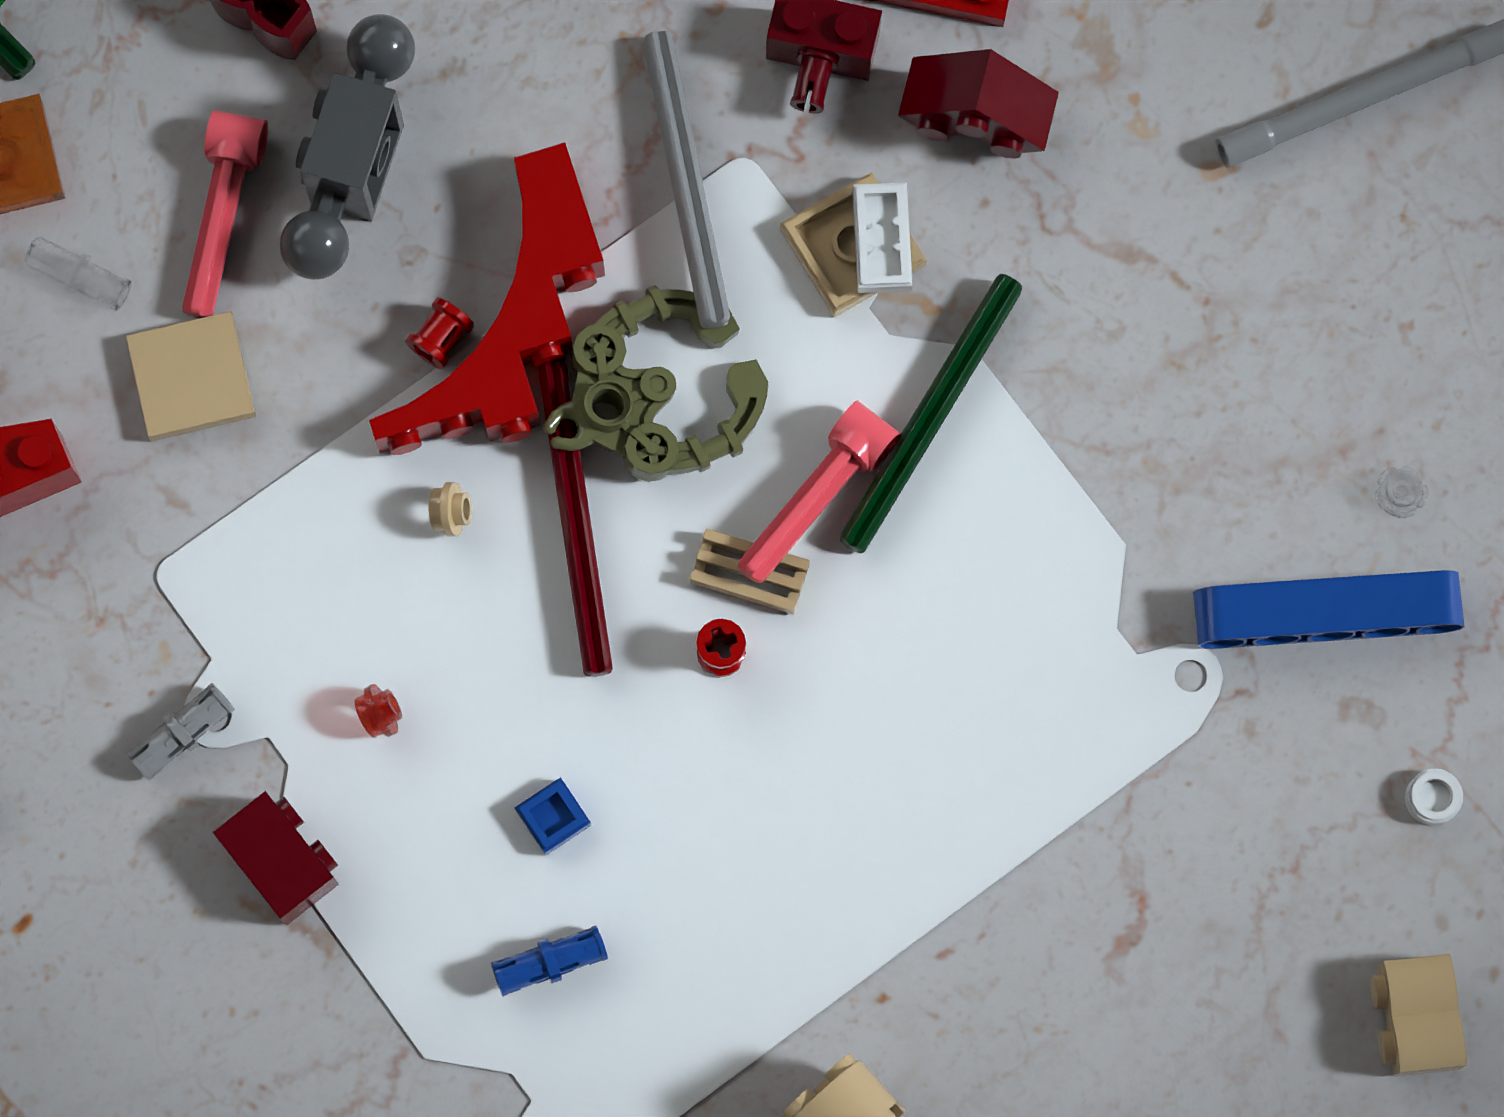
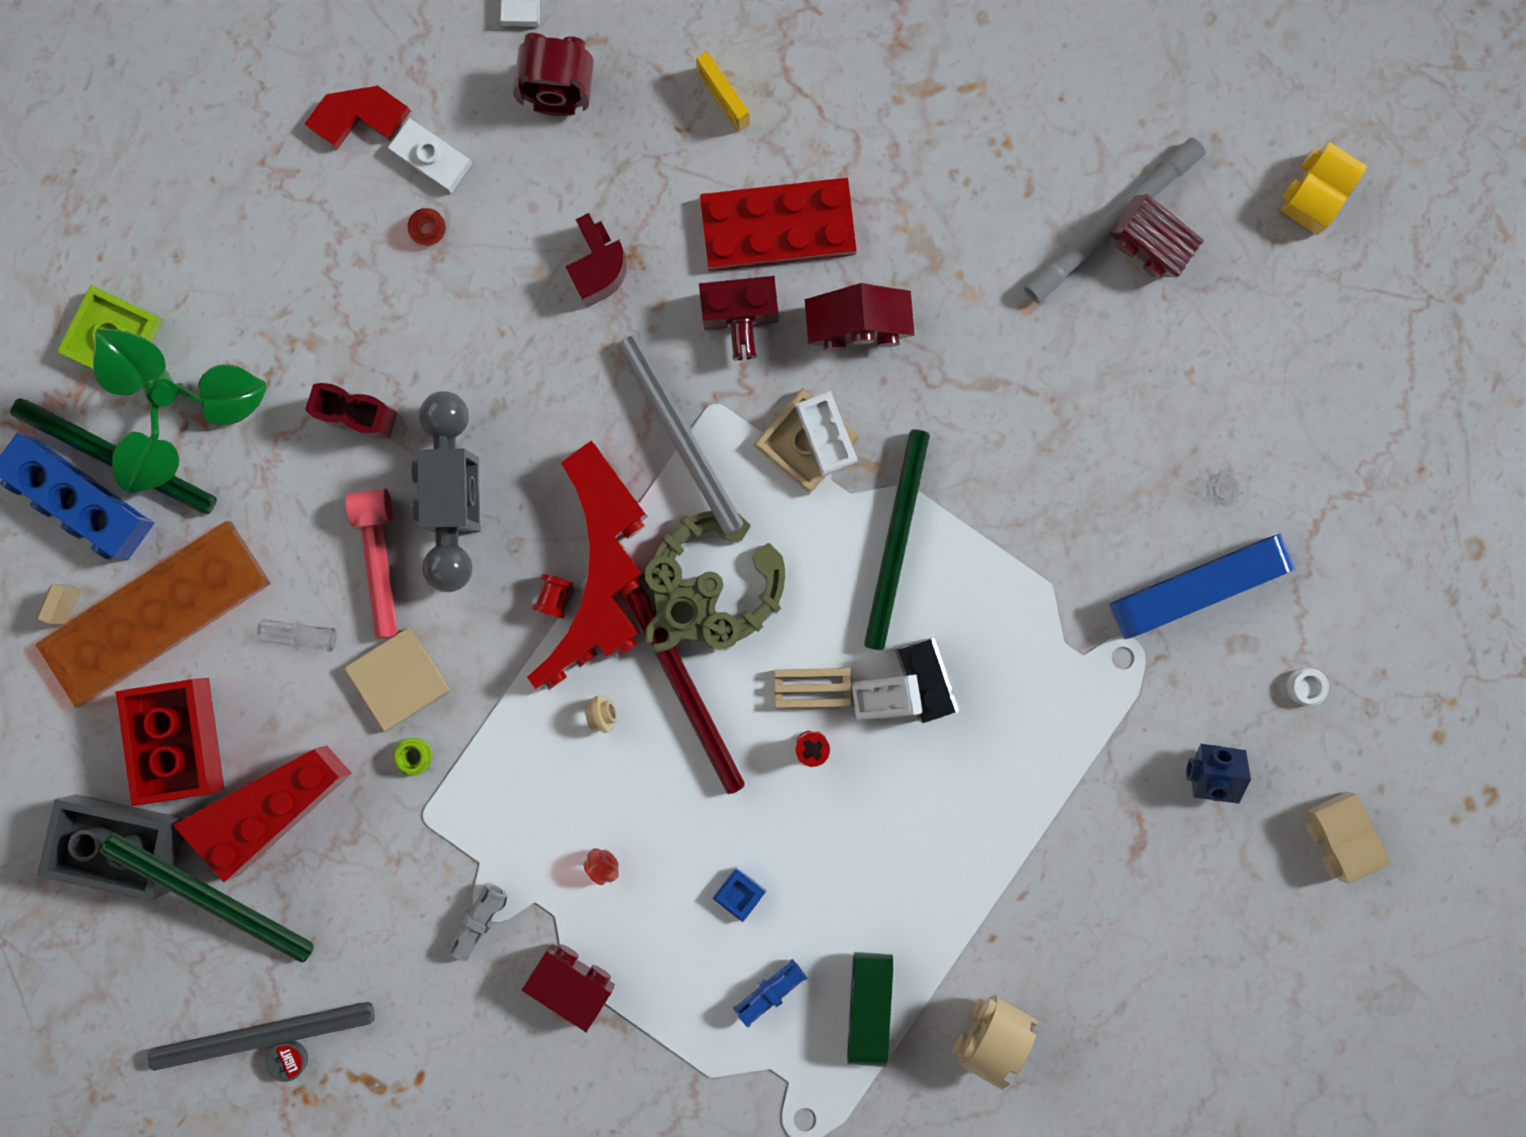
camera: 10 degrees left, 10 degrees up
(166, 470) = (401, 756): none -> lime plate
(679, 1028) = (870, 1009): none -> dark green beam
(845, 608) = (886, 697): none -> white plate
(857, 444) = (856, 578): coral axle -> none
(908, 606) = (933, 683): none -> black brick
(1268, 864) = (1219, 773): none -> dark blue brick
(1410, 129) = (1155, 237): none -> brick

